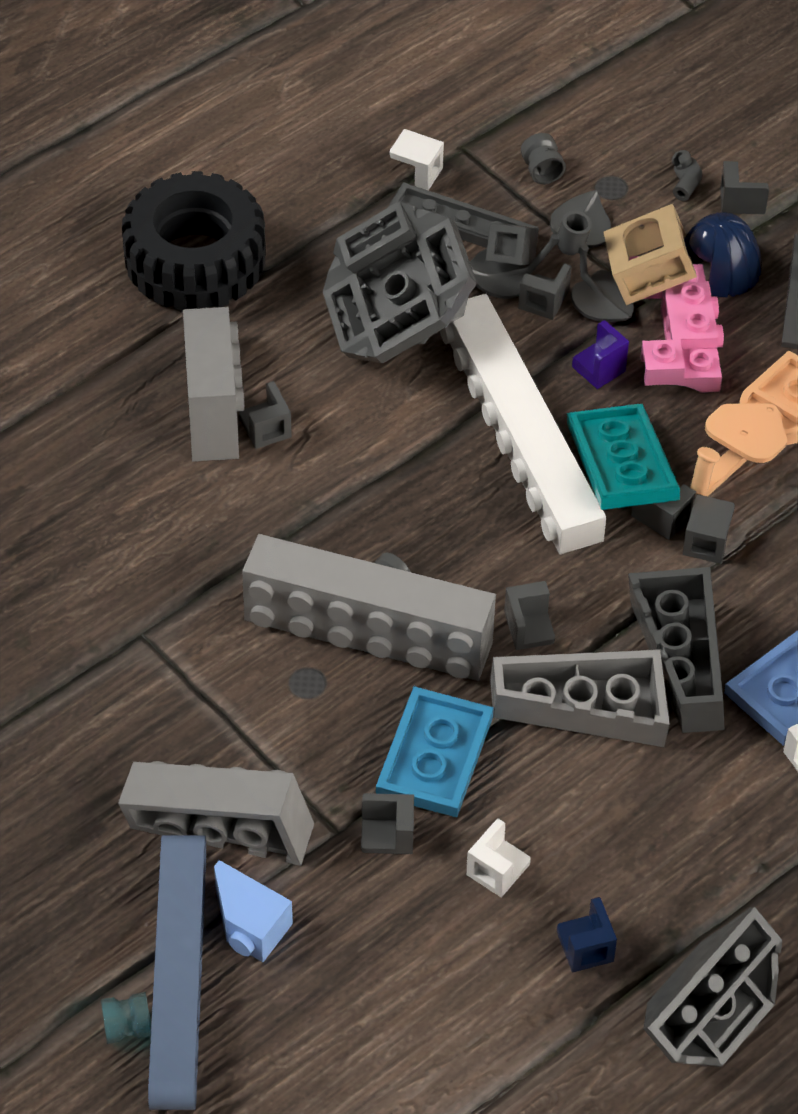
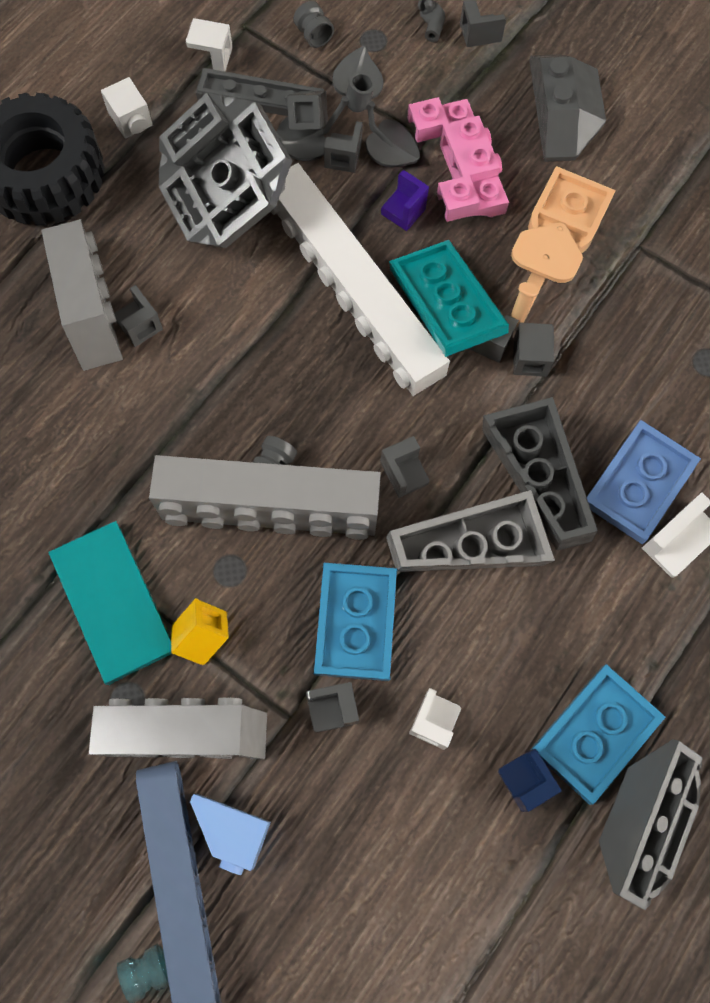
camera: 15 degrees left, 20 degrees up
(171, 684) = (111, 602): none -> teal tile
(260, 726) = (199, 632): none -> yellow panel
(306, 208) = (127, 107): none -> white brick
(653, 270) = (435, 115): tan panel -> none
(676, 908) = (598, 734): none -> dark azure plate
(730, 249) = (482, 76): dark blue hair -> none

